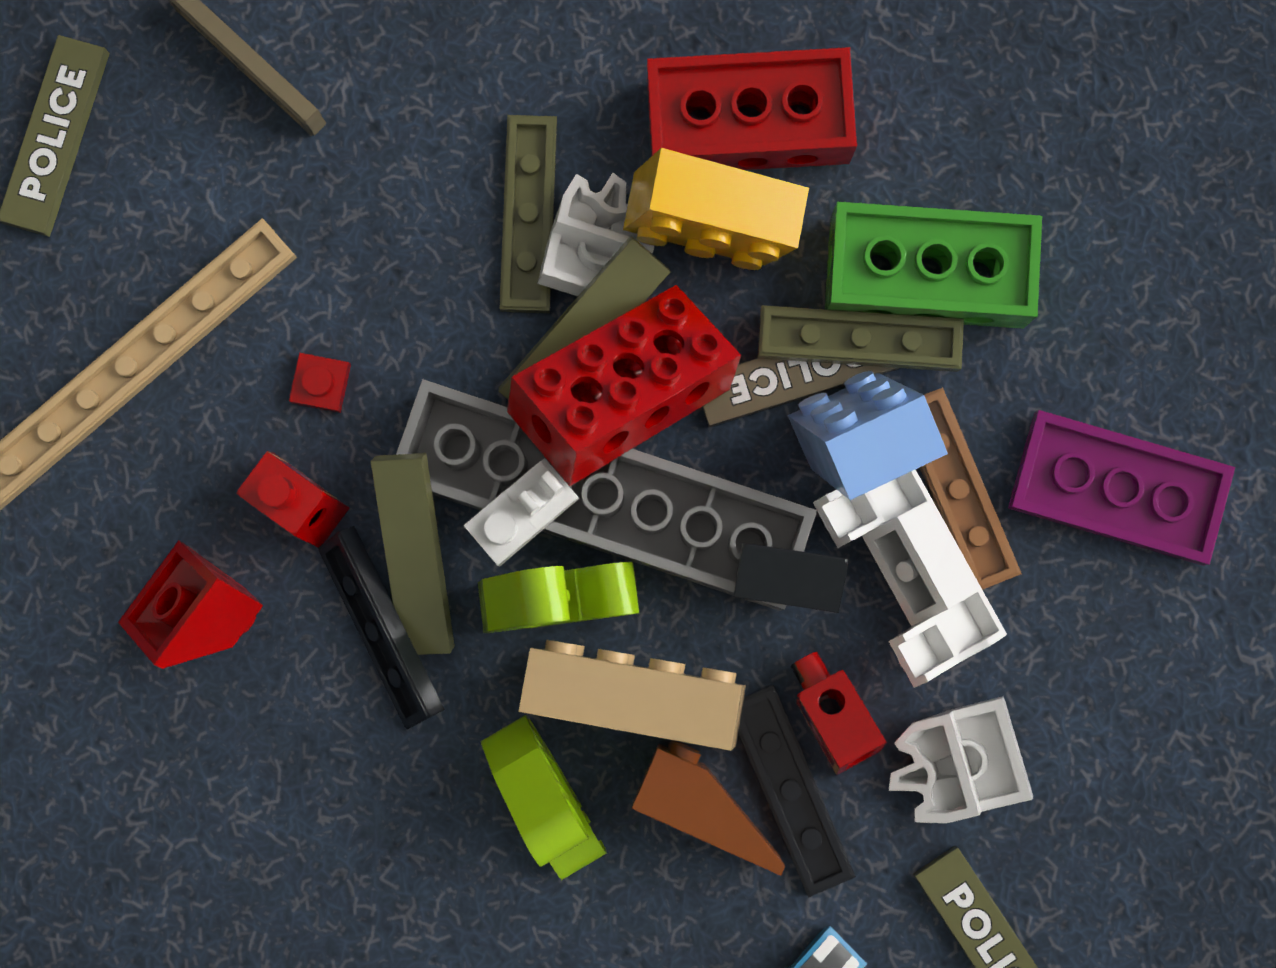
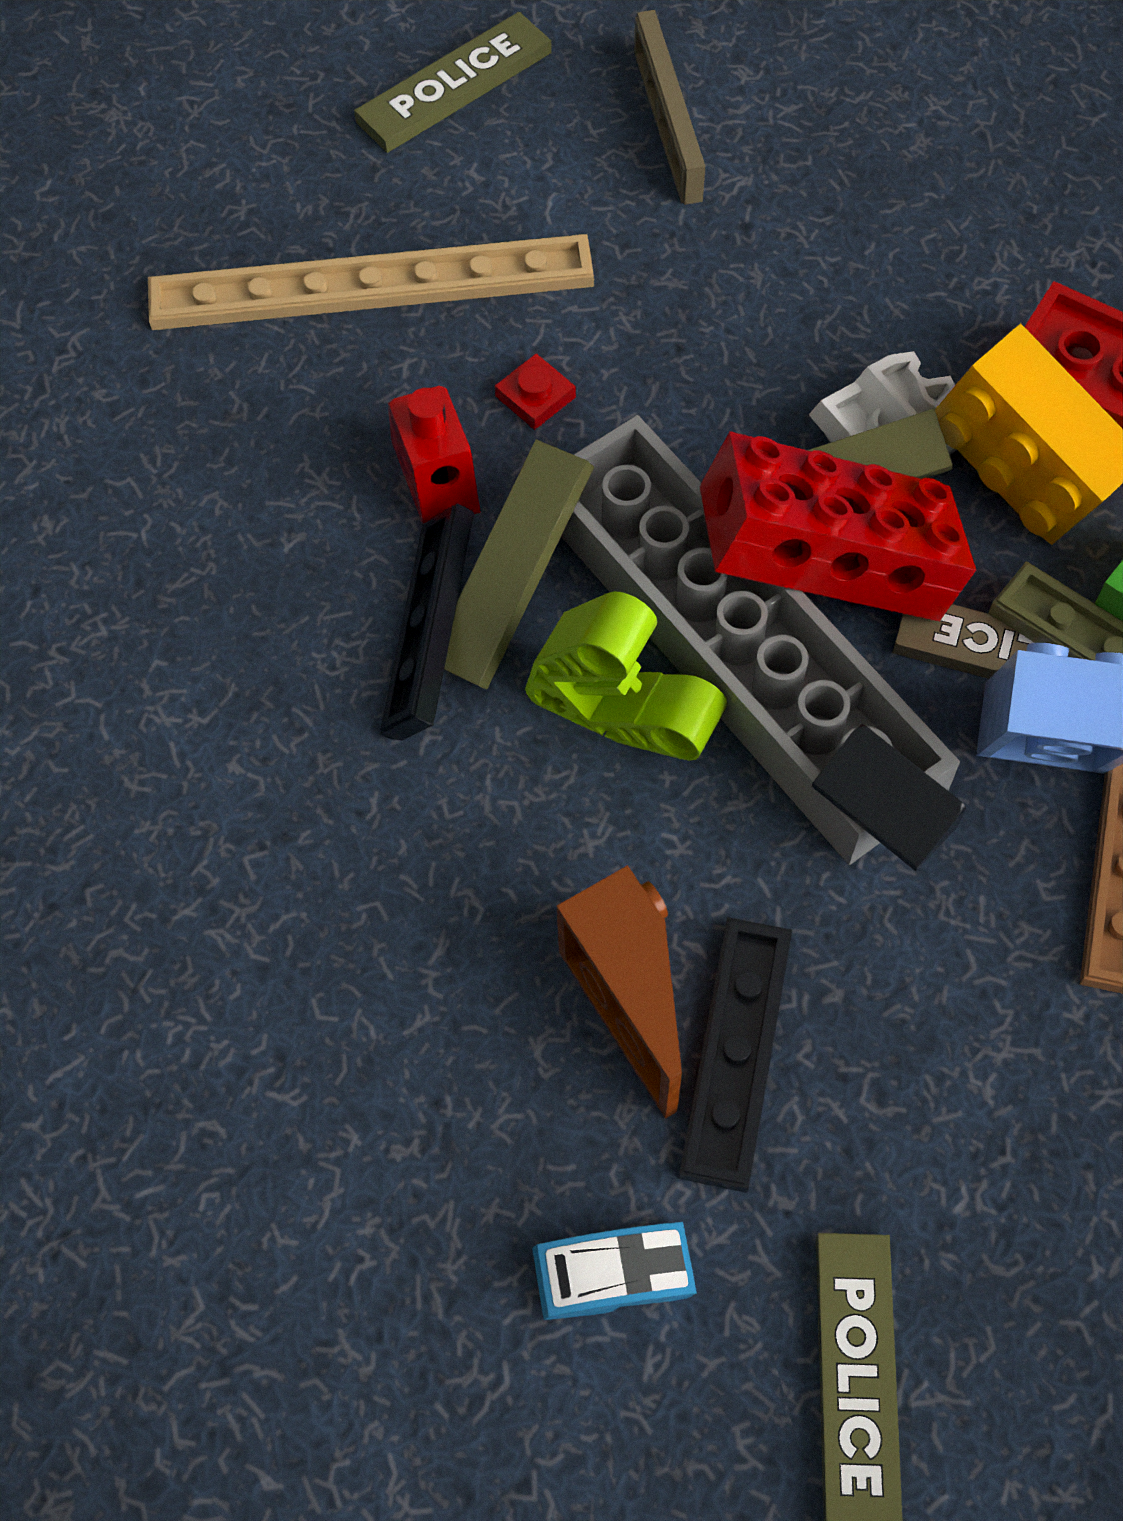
camera: 35 degrees right, 20 degrees down
(188, 610) = (268, 497): red slope -> none
(521, 512) = (656, 573): white plate -> none
(527, 211) = (862, 339): olive tile -> none
(541, 799) = (466, 873): lime connector -> none
(632, 697) = (644, 818): tan piece -> none
(843, 736) = (842, 998): red torso -> none
(923, 570) = (1041, 898): white bracket -> none
(963, 763) = (956, 1143): white plate -> none

